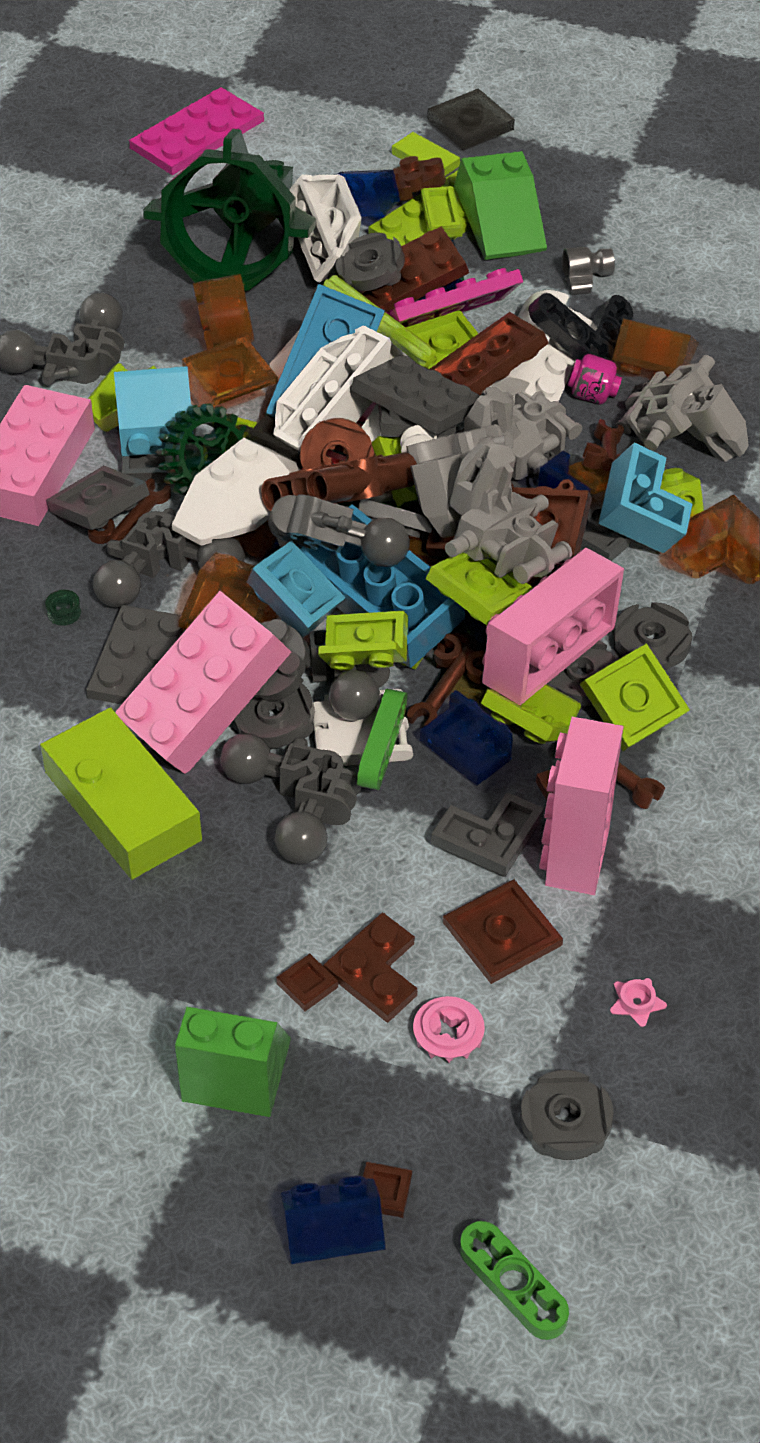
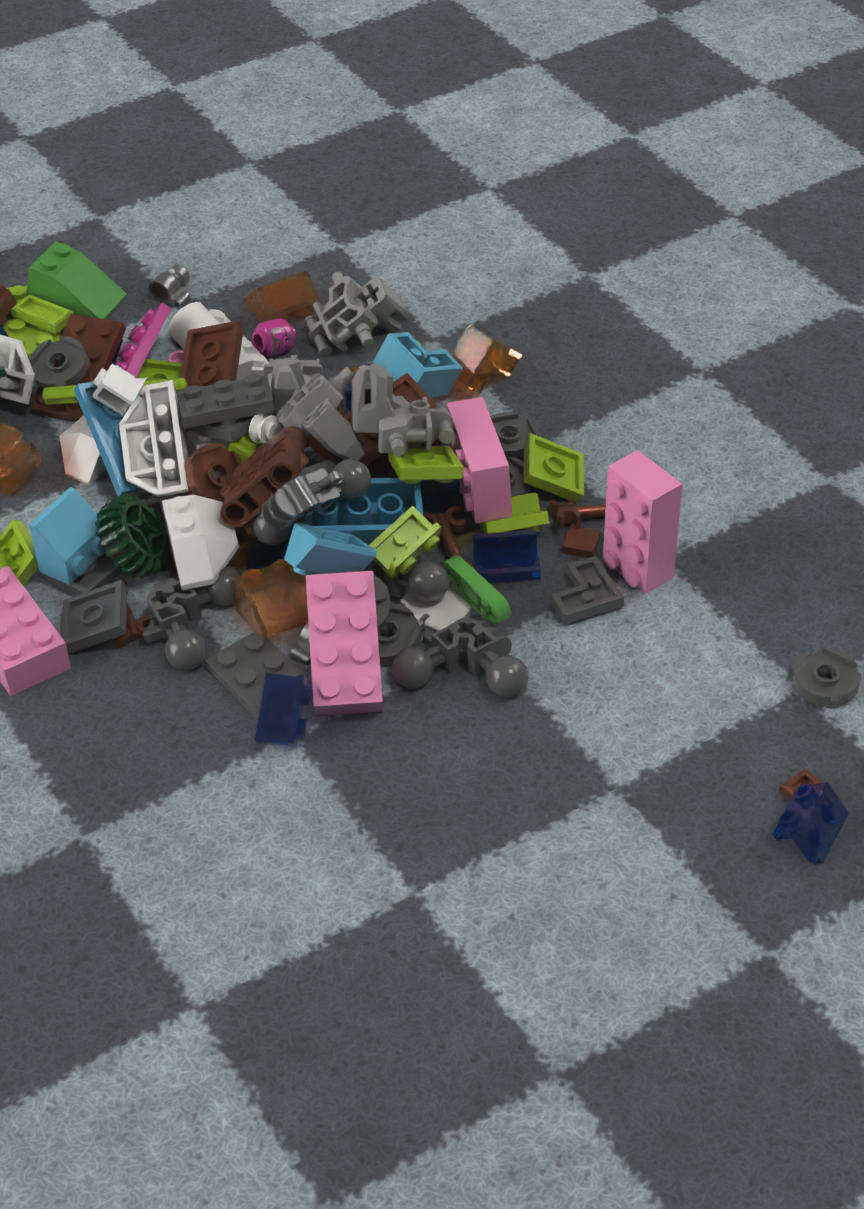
camera: 50 degrees left, 5 degrees down
(64, 615) = (165, 684): clear green bush -> none
(100, 688) = (282, 710): none -> clear blue bracket
(121, 793) = (376, 744): lime brick -> none
(227, 372) = (62, 474): clear orange slope -> none
(230, 1060) = (660, 798): bright green slope -> none
(307, 982) = (616, 741): copper tile -> none
(345, 310) = (117, 388): none -> white window
(365, 967) = (634, 710): copper plate -> none
(454, 1013) = (728, 690): bright pink gear -> none
(502, 931) = (663, 630): copper tile -> none
(548, 310) = (230, 308): black beam -> none
(602, 457) = (328, 359): copper bar -> none
(637, 989) = (768, 595): bright pink plate -> none

